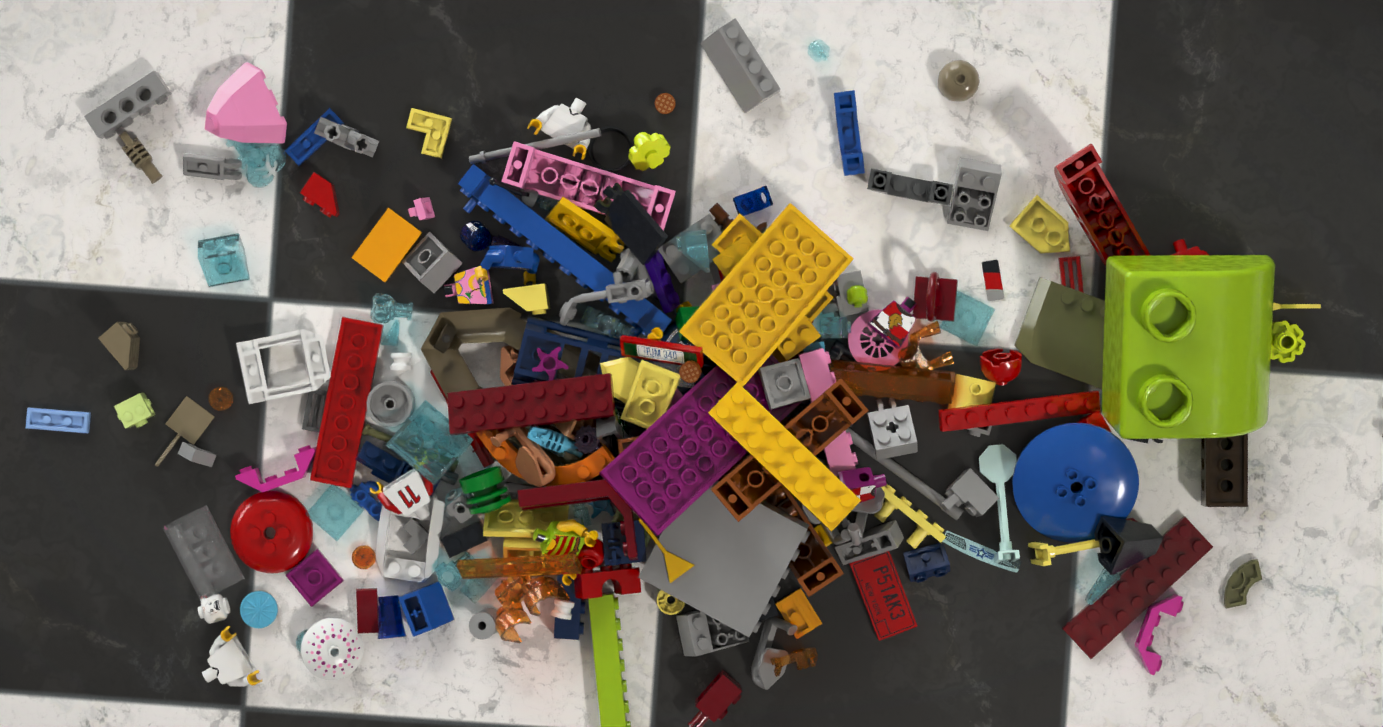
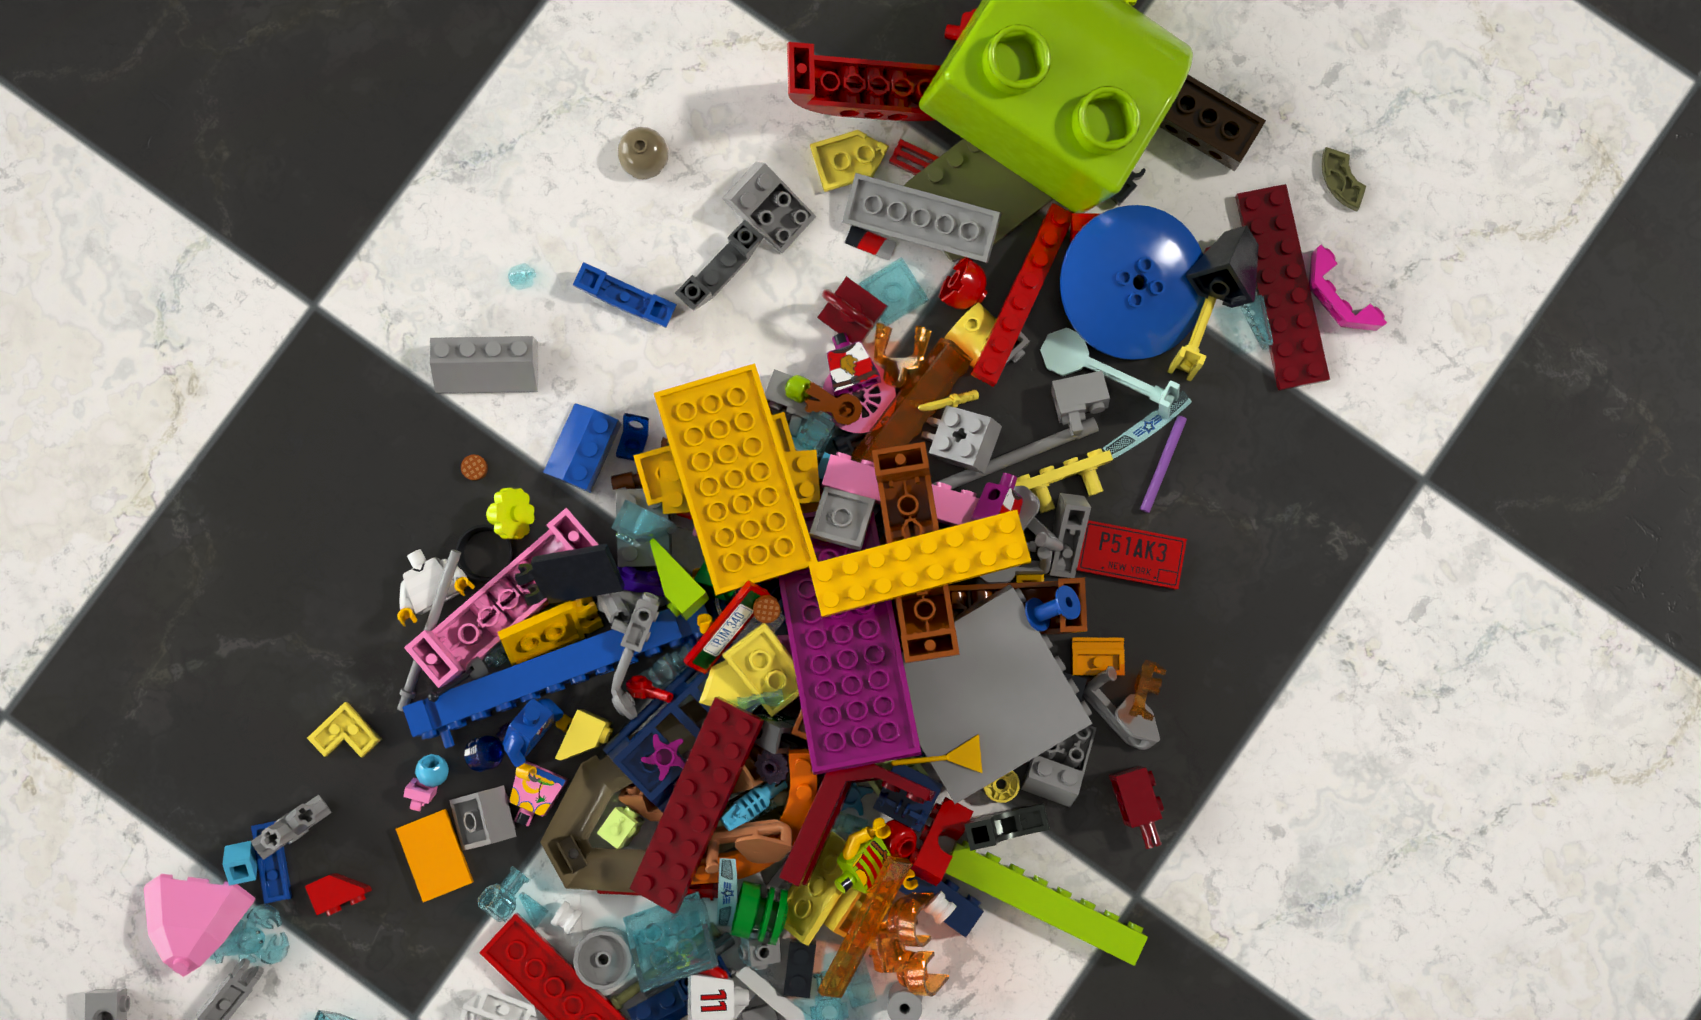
camera: 55 degrees left, 5 degrees down
(302, 118) = (240, 863): none -> medium azure brick
(442, 208) = (431, 770): none -> medium azure piece
(484, 360) = (621, 826): none -> yellowish green head
(485, 460) = (727, 892): none -> clear light blue sticker
(585, 316) = (642, 688): none -> red plate
(621, 399) = (771, 698): none -> clear light blue piece
(645, 620) = (1005, 825): none -> pearl dark grey arch
(668, 303) = (679, 588): none -> lime slope
(724, 169) = (582, 447): none -> blue slope
(817, 571) = (1065, 603): none -> blue piece
(862, 335) = (844, 408): none -> dark orange piece
(914, 407) = (953, 400): none -> light yellow piece
(927, 562) = (1125, 487): dark blue bracket -> none
(960, 579) = (1163, 464): none -> medium lavender piece
(1030, 307) = (922, 217): none -> light grey plate

